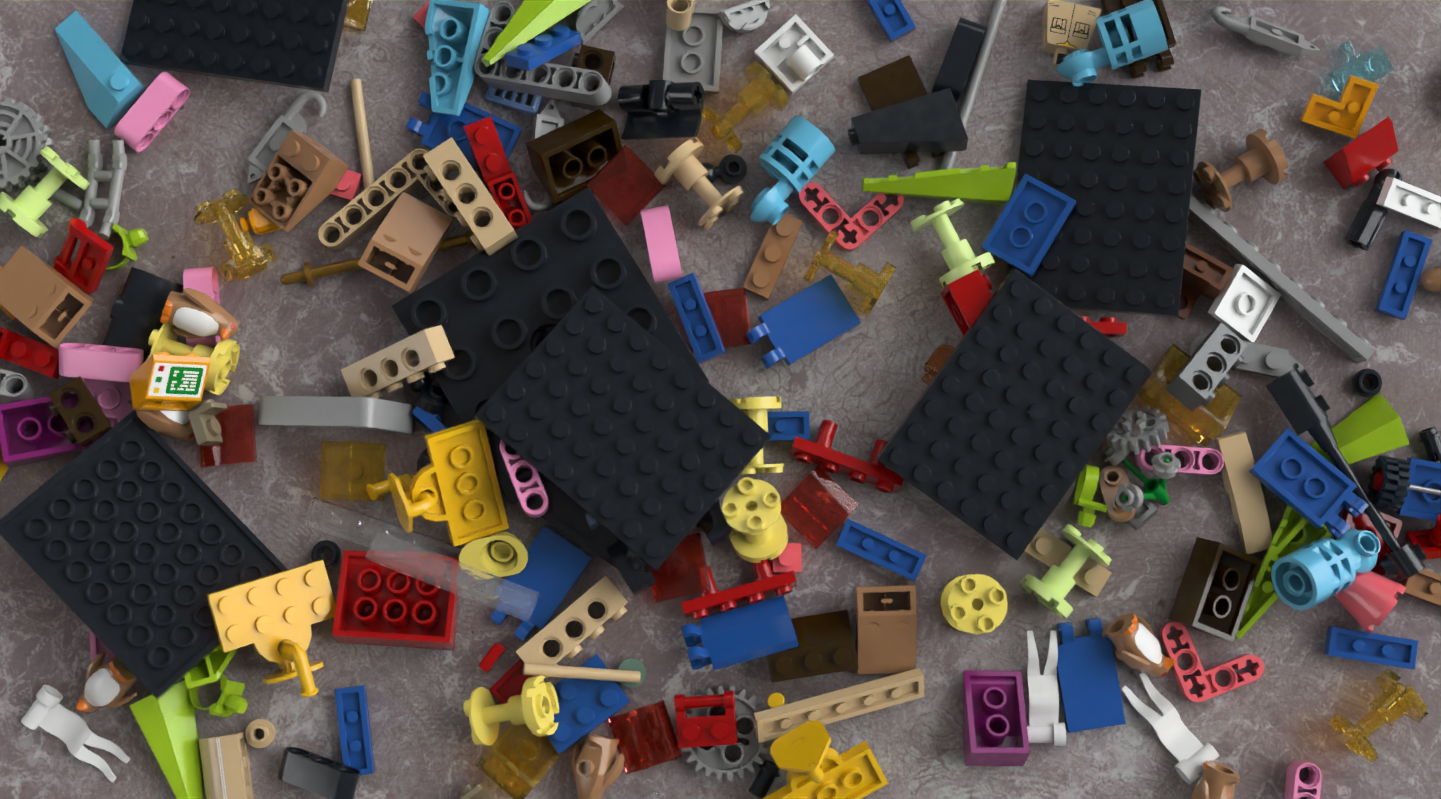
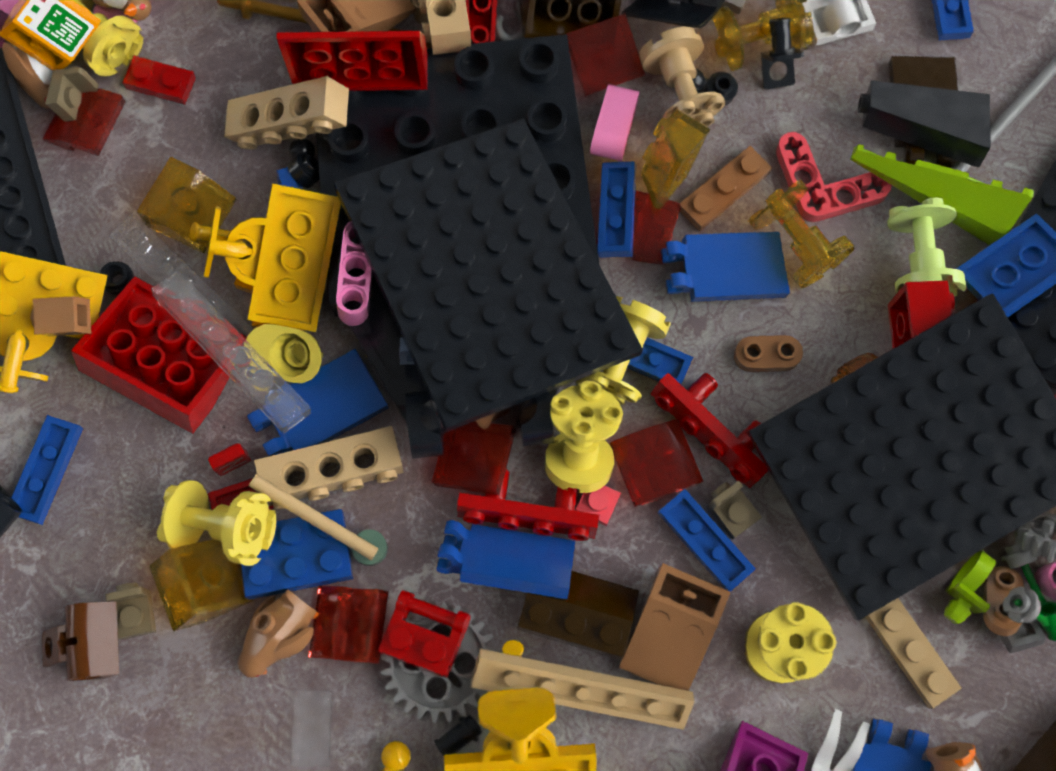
camera: 25 degrees right, 10 degrees down
(269, 372) = (159, 80): none -> red plate
(312, 614) = (61, 316): none -> medium nougat brick
(336, 413) = (206, 135): light grey beam -> none
(437, 300) = (358, 58): none -> red slope
(719, 255) = (671, 155): none -> clear yellow slope
(768, 121) = (780, 52): none -> black bracket
(791, 162) = (784, 103): medium azure cylinder -> none
(865, 378) = (769, 353): none -> medium nougat plate
(890, 515) = (733, 509): none -> dark tan bracket
(959, 57) = (1011, 77): black beam -> none
(1059, 580) = (898, 666): yellowish green piece -> none

